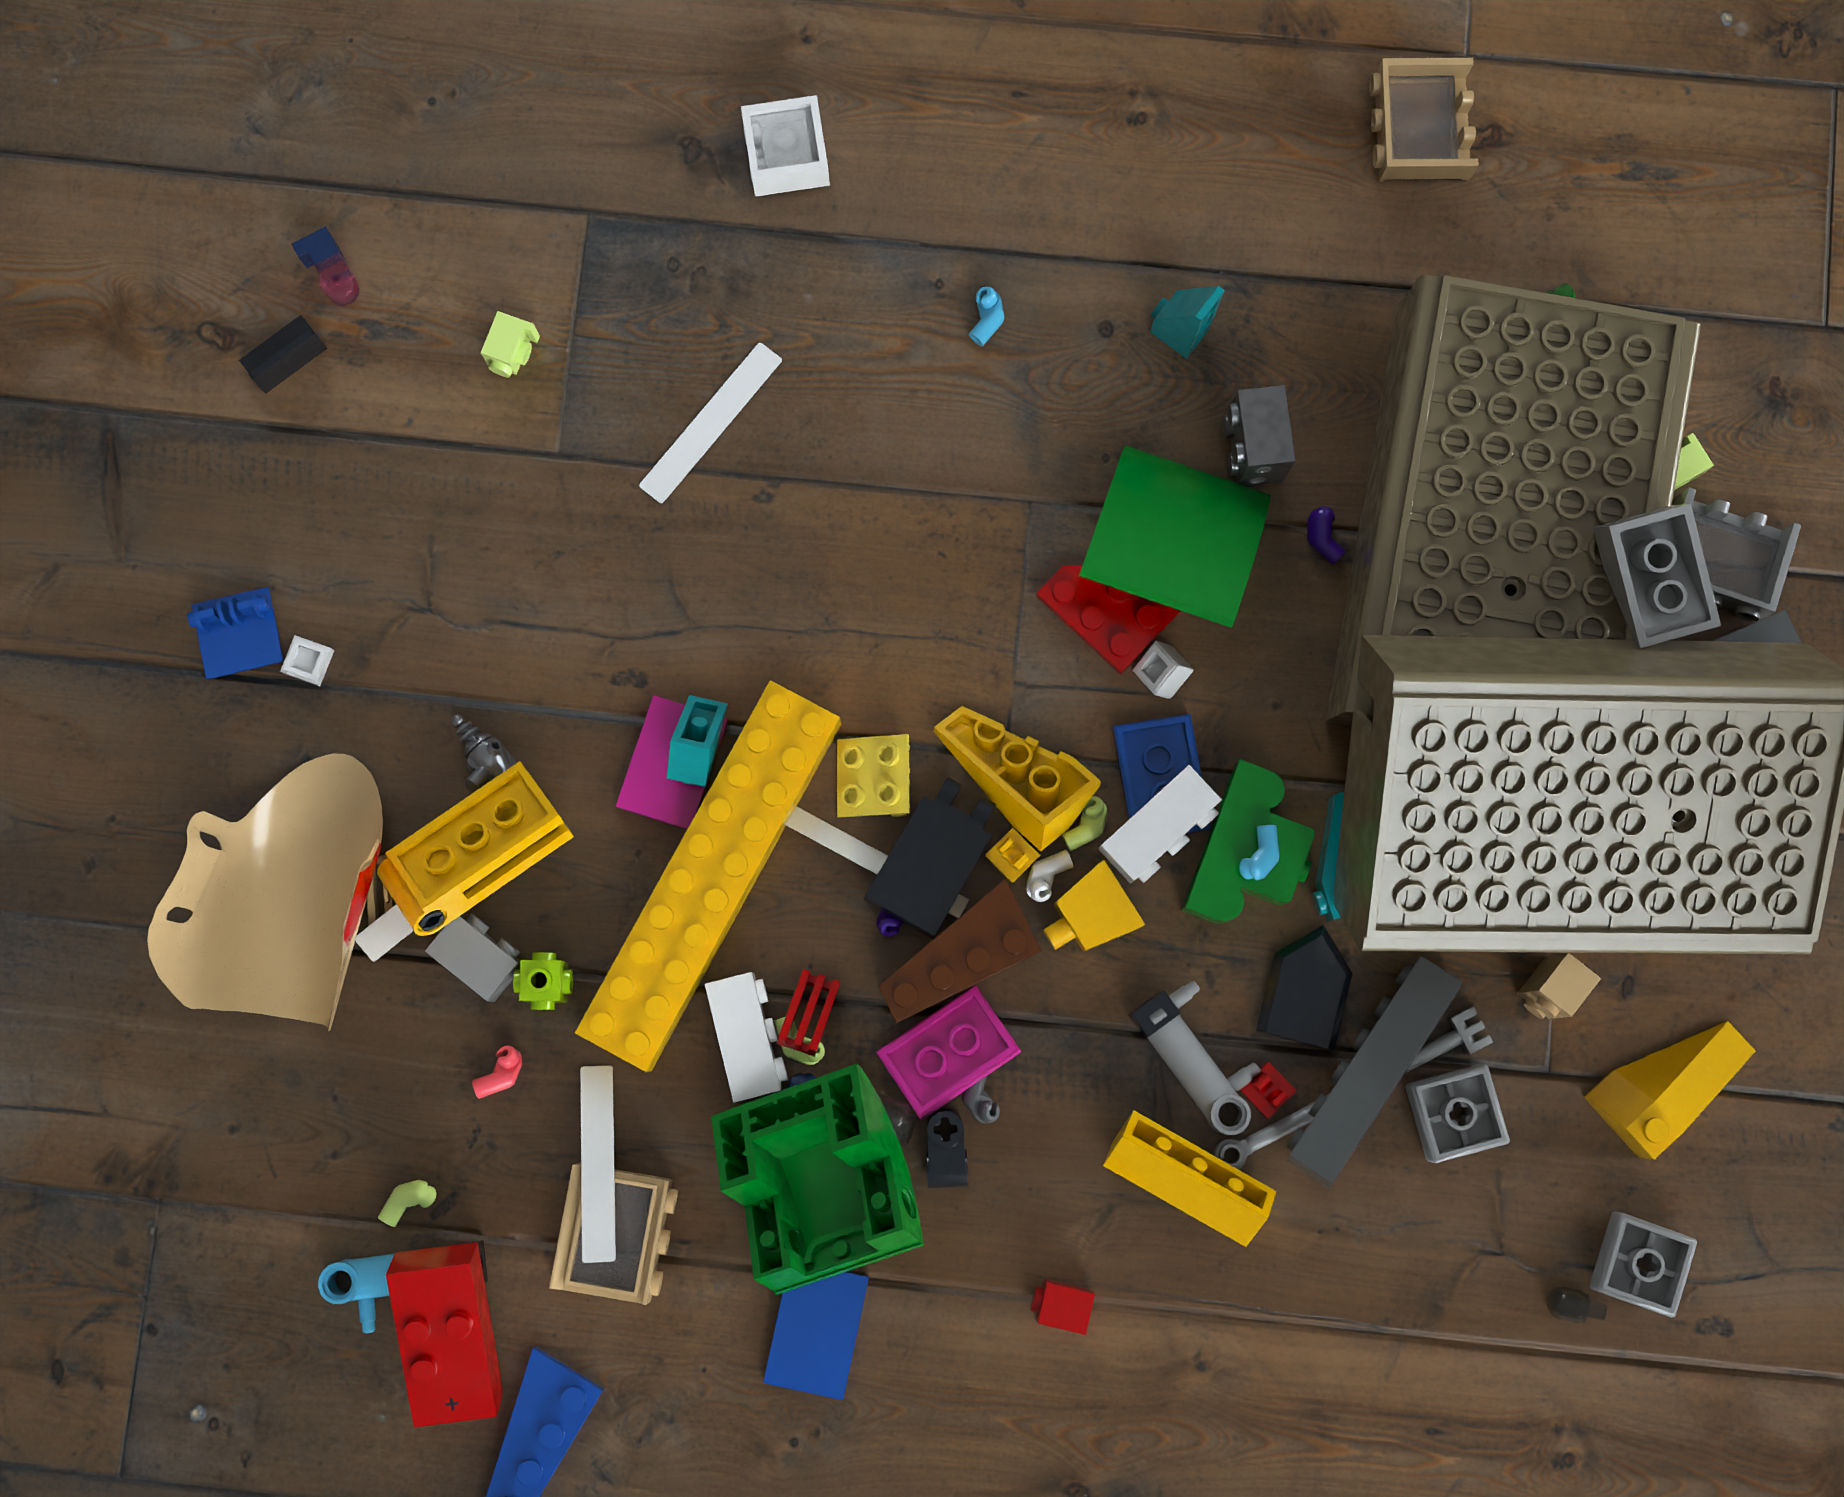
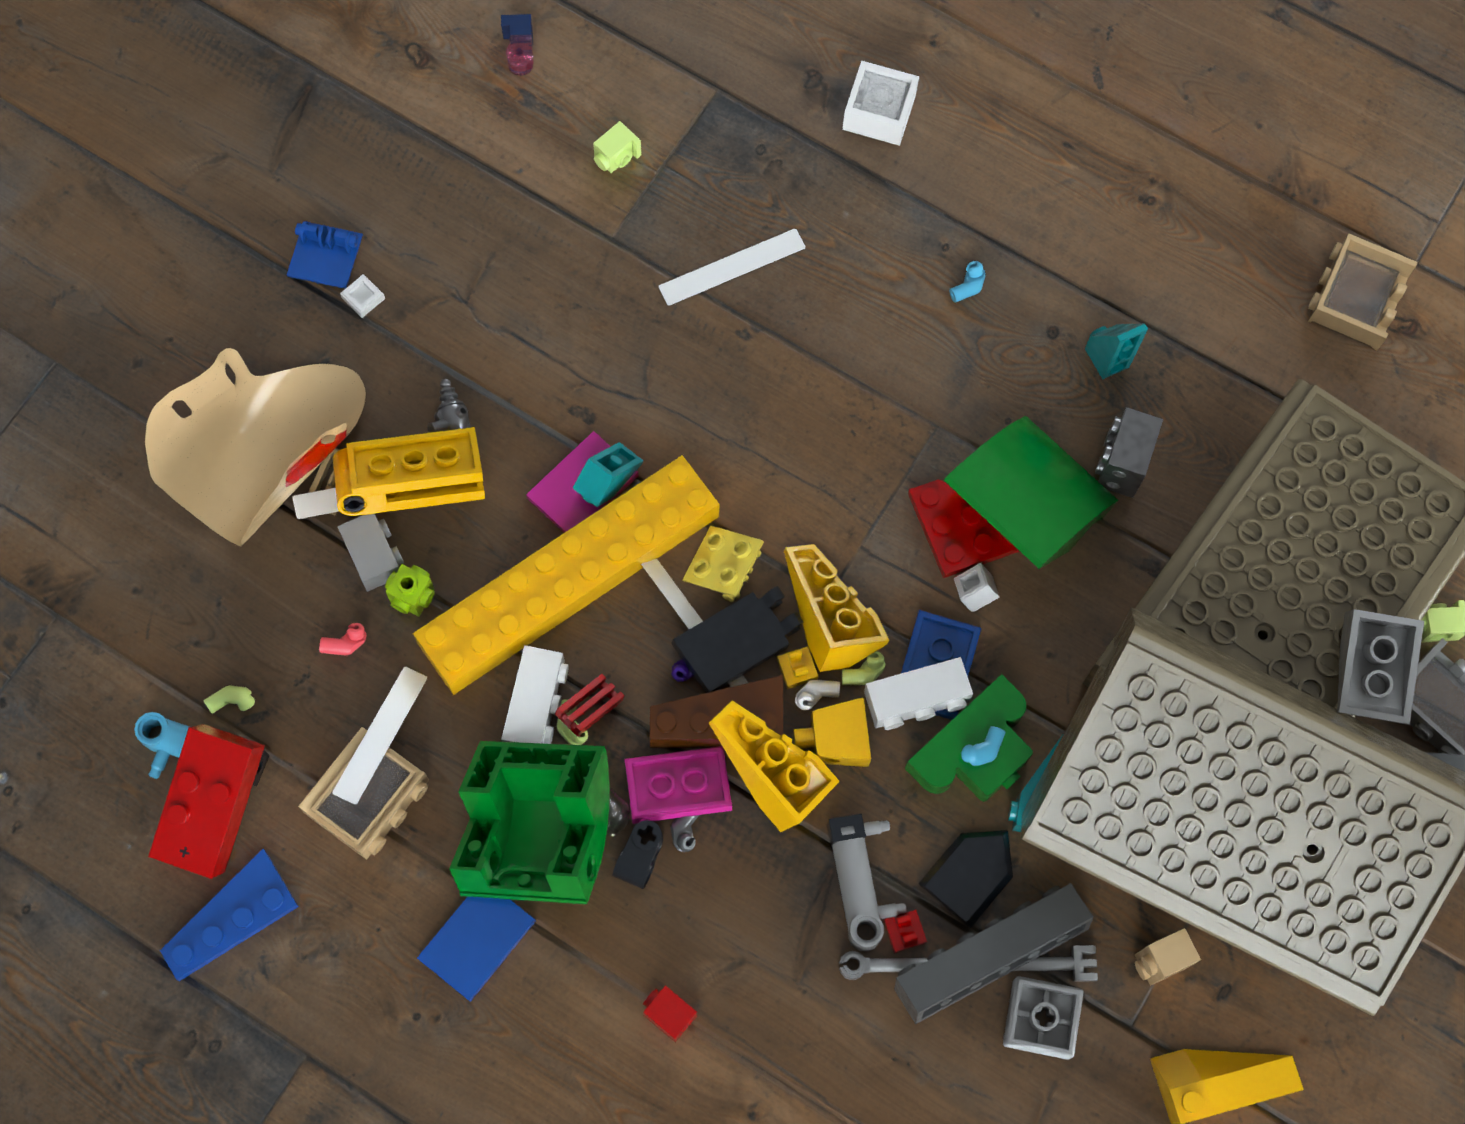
camera: 25 degrees right, 10 degrees down
(282, 354) = (456, 86): black panel -> none
(1049, 988) = (776, 772): none -> yellow wedge
(1187, 1179) = (812, 963): yellow brick -> none
(1319, 534) = (1142, 546): dark purple arm -> none

